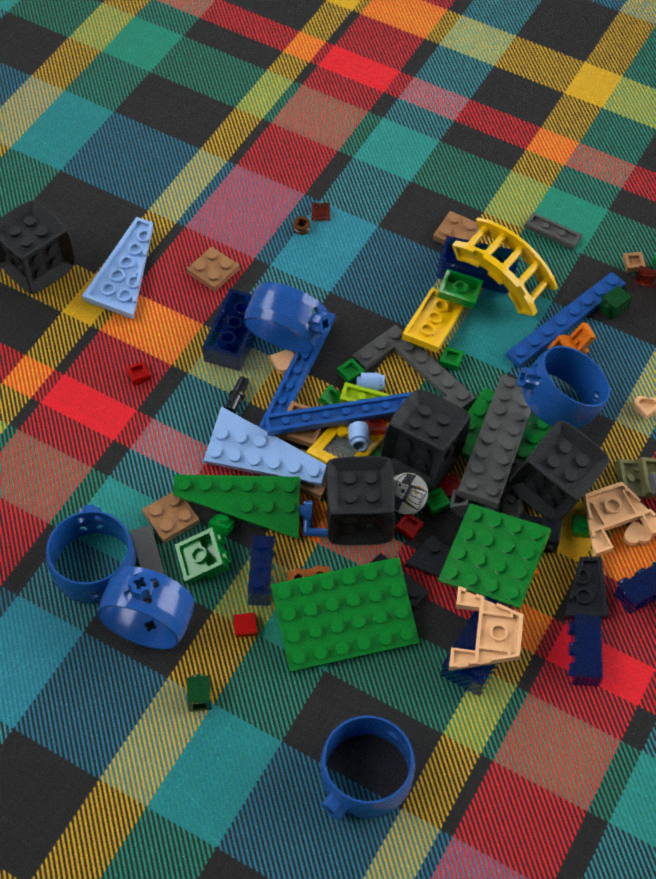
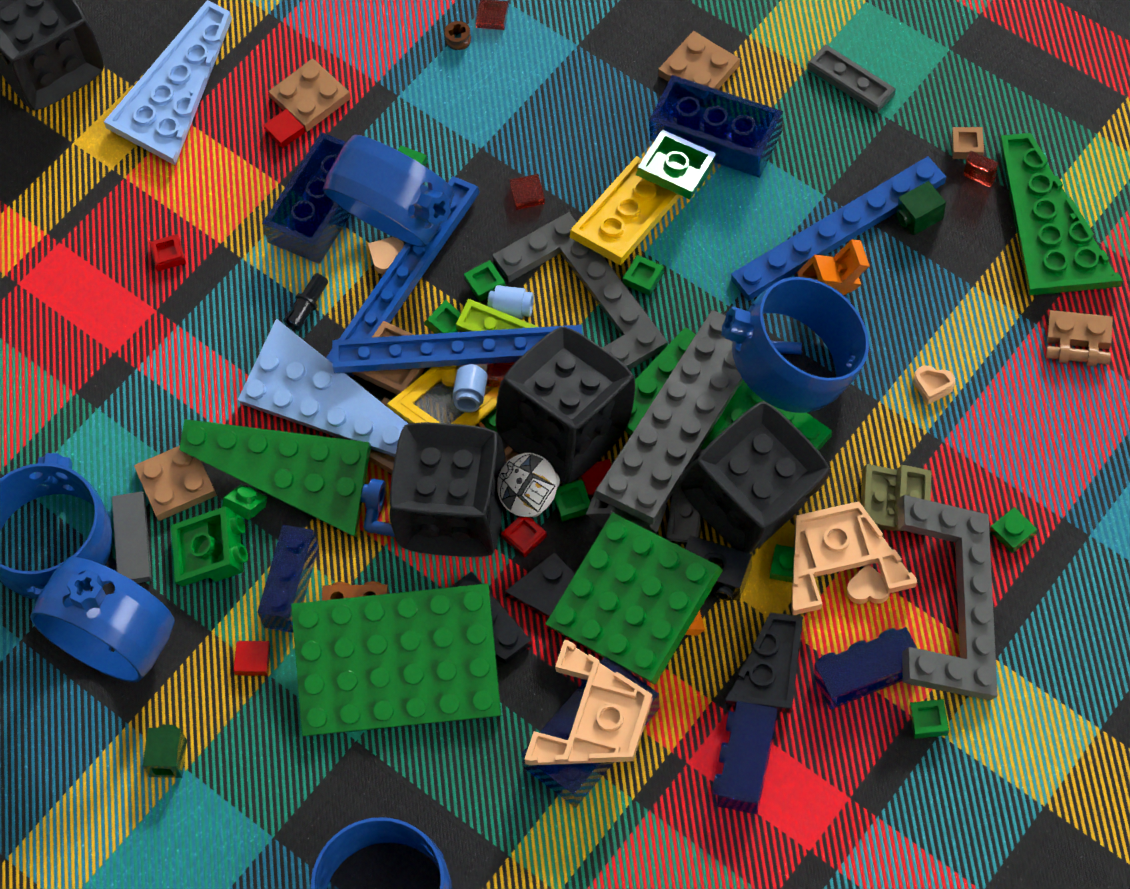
camera: 15 degrees right, 5 degrees up
(200, 290) = (284, 128): none -> red tile
(365, 315) = (527, 191): none -> clear red tile
(500, 271) = (738, 143): yellow fence -> none

